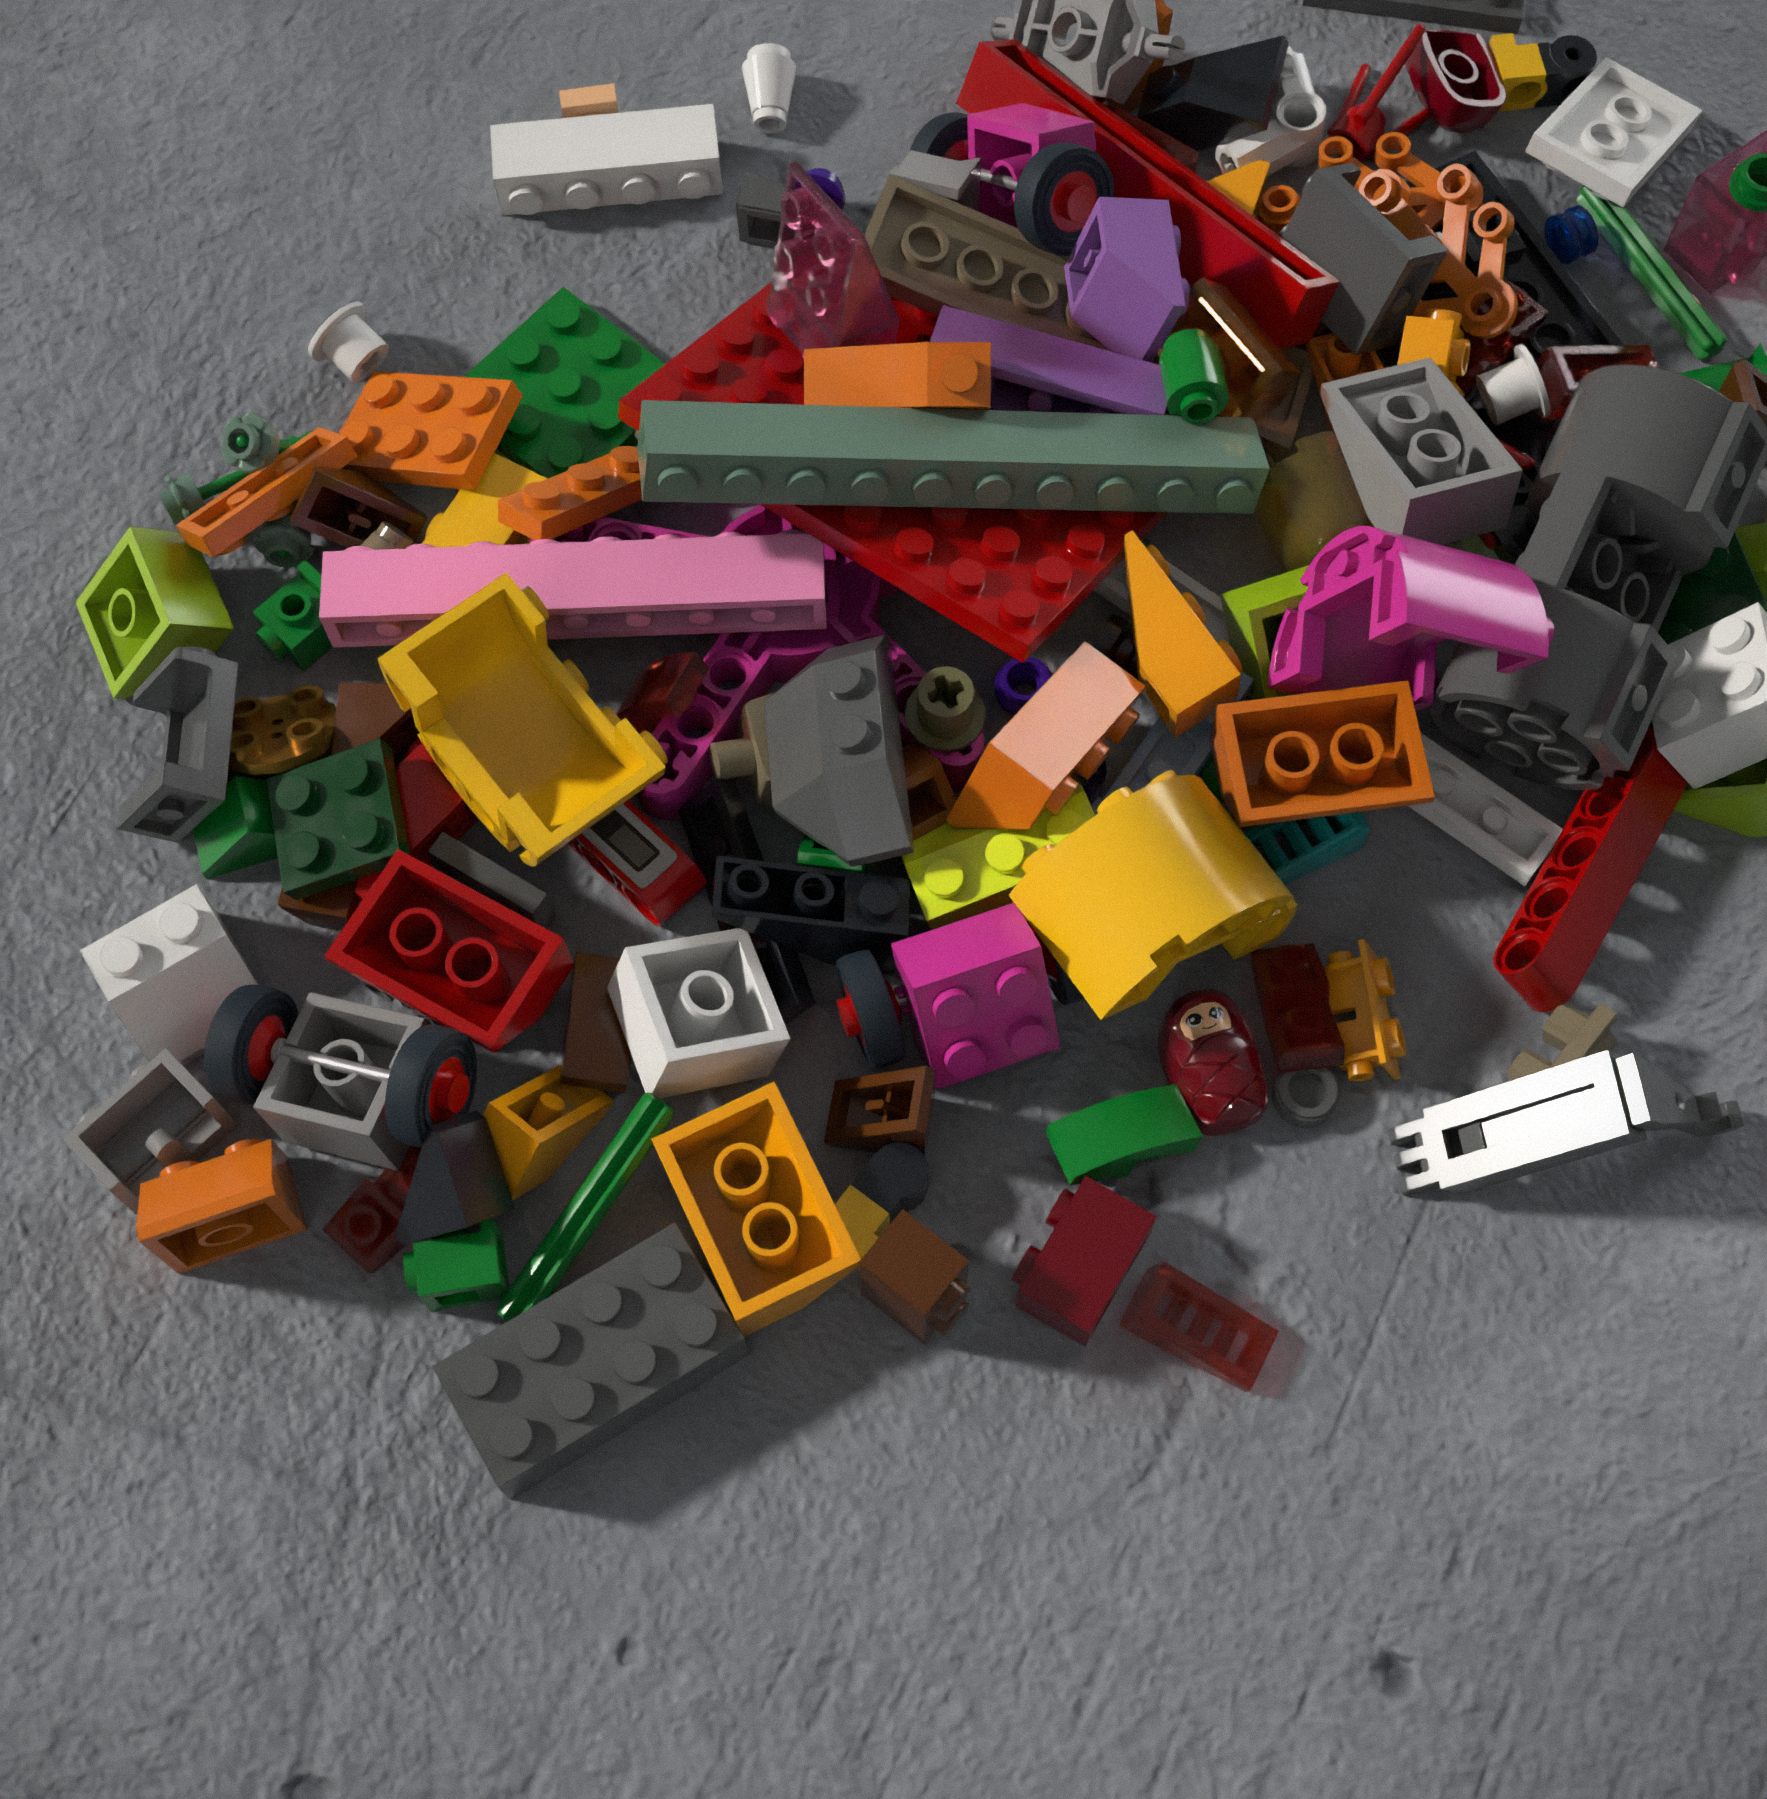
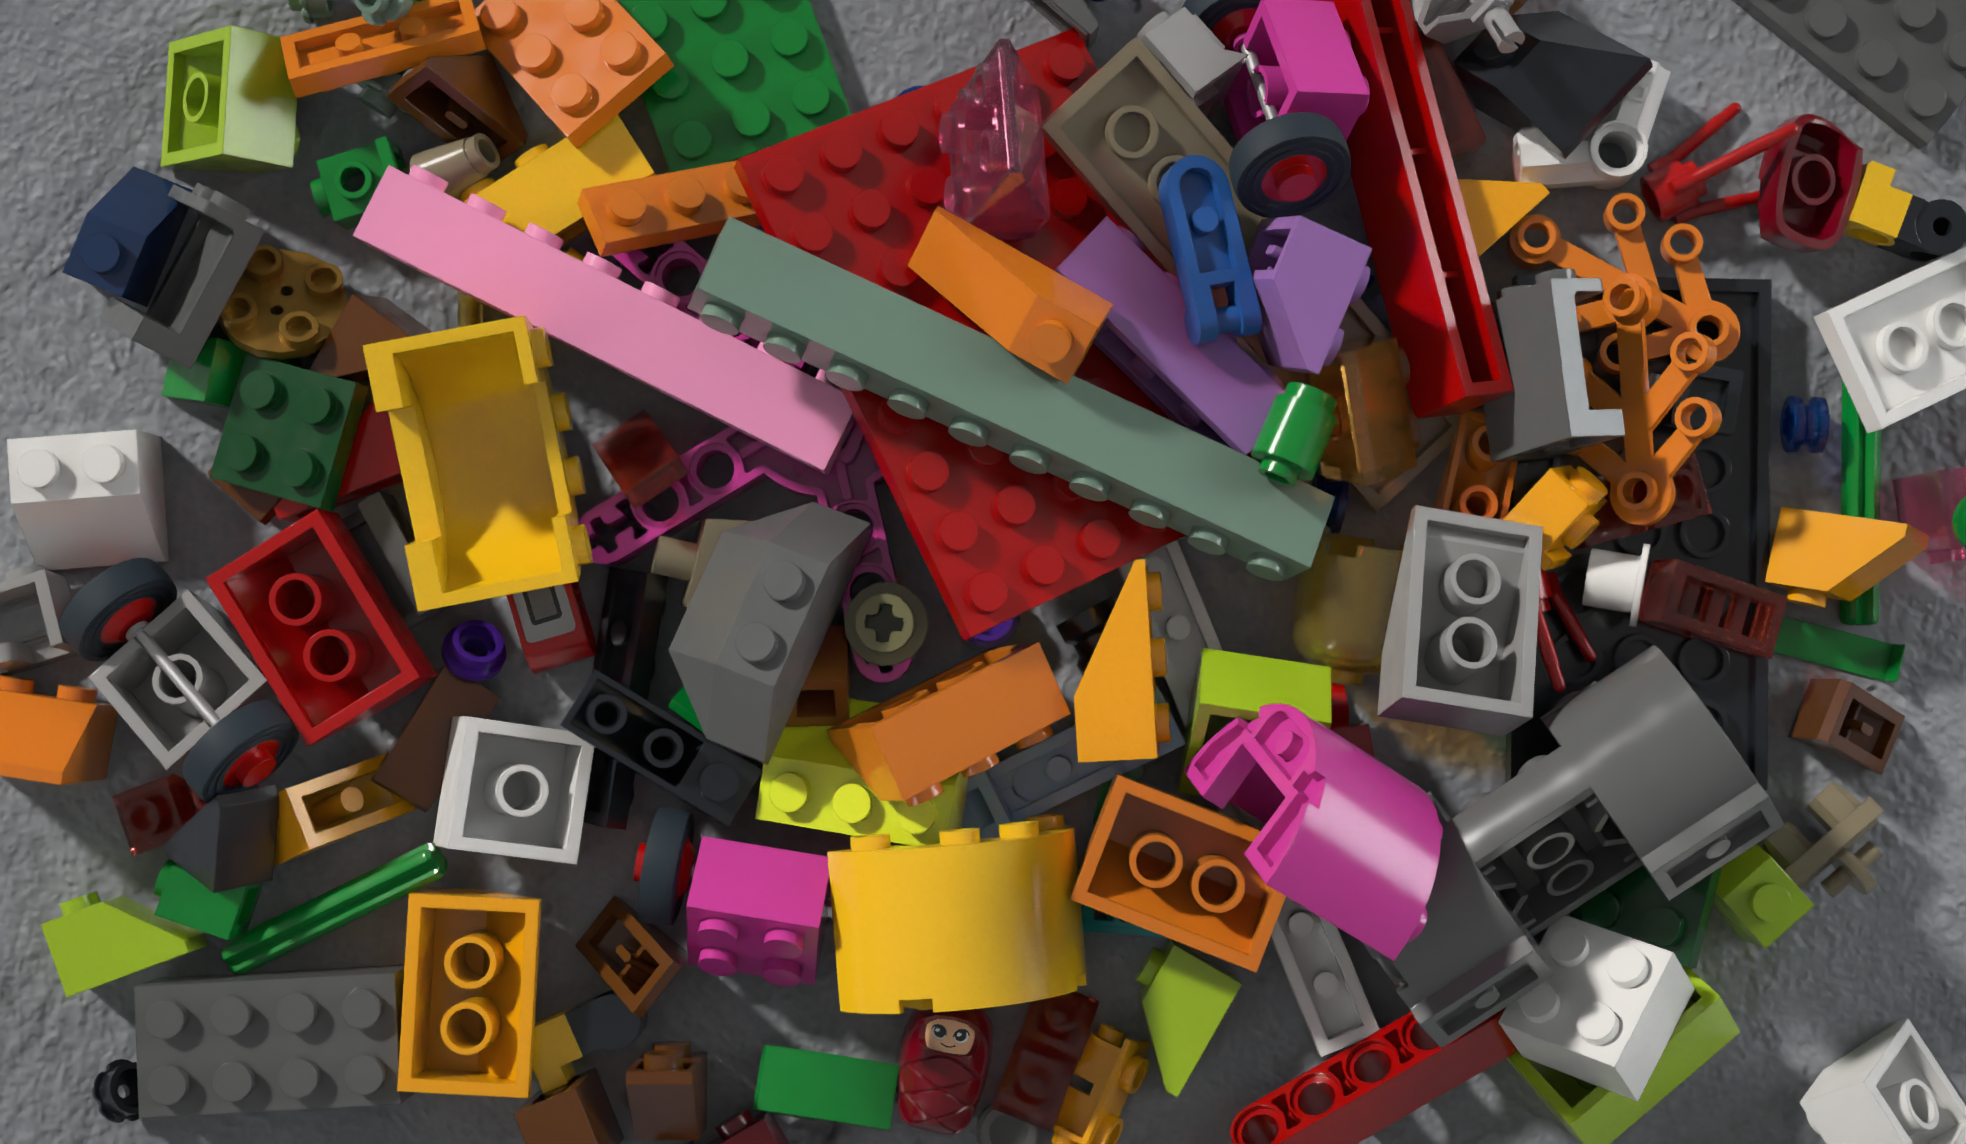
camera: 30 degrees right, 20 degrees up
(109, 758) = (128, 237): none -> dark blue slope
(390, 1353) = (112, 940): none -> lime slope
(467, 1494) = (105, 1091): none -> black plate
(596, 931) = (479, 638): none -> dark purple plate
(987, 1203) = (668, 1092): none -> reddish brown slope
(1041, 288) = (1208, 250): none -> blue plate
(1388, 902) = (1182, 1008): none -> lime slope
(1666, 291) = (1837, 554): none -> light orange slope

